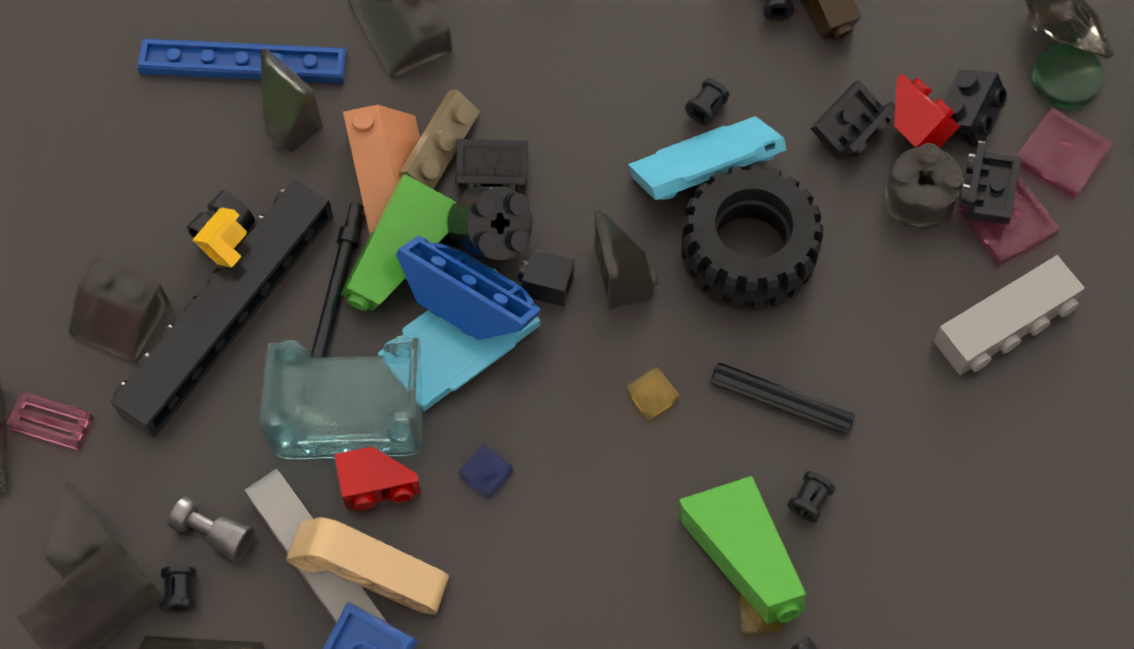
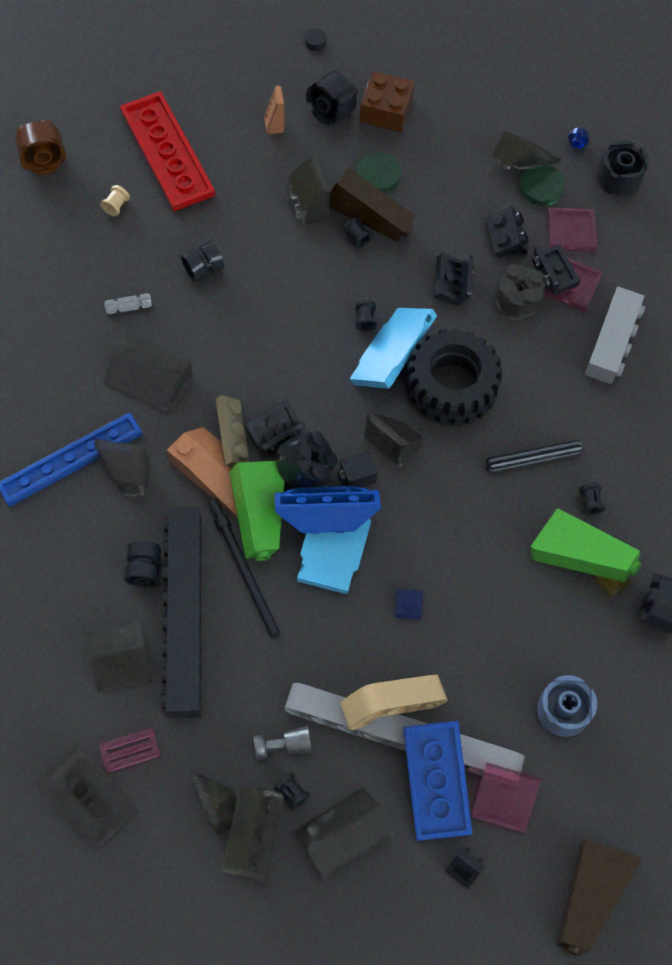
camera: 40 degrees left, 0 degrees up
(221, 236) = (154, 570): yellow panel -> none
(342, 402) = (306, 616): clear light blue windscreen -> none
(373, 477) = (351, 649): red slope -> none
(652, 393) = (464, 499): clear yellow plate -> none
(919, 116) = (489, 254): red slope -> none

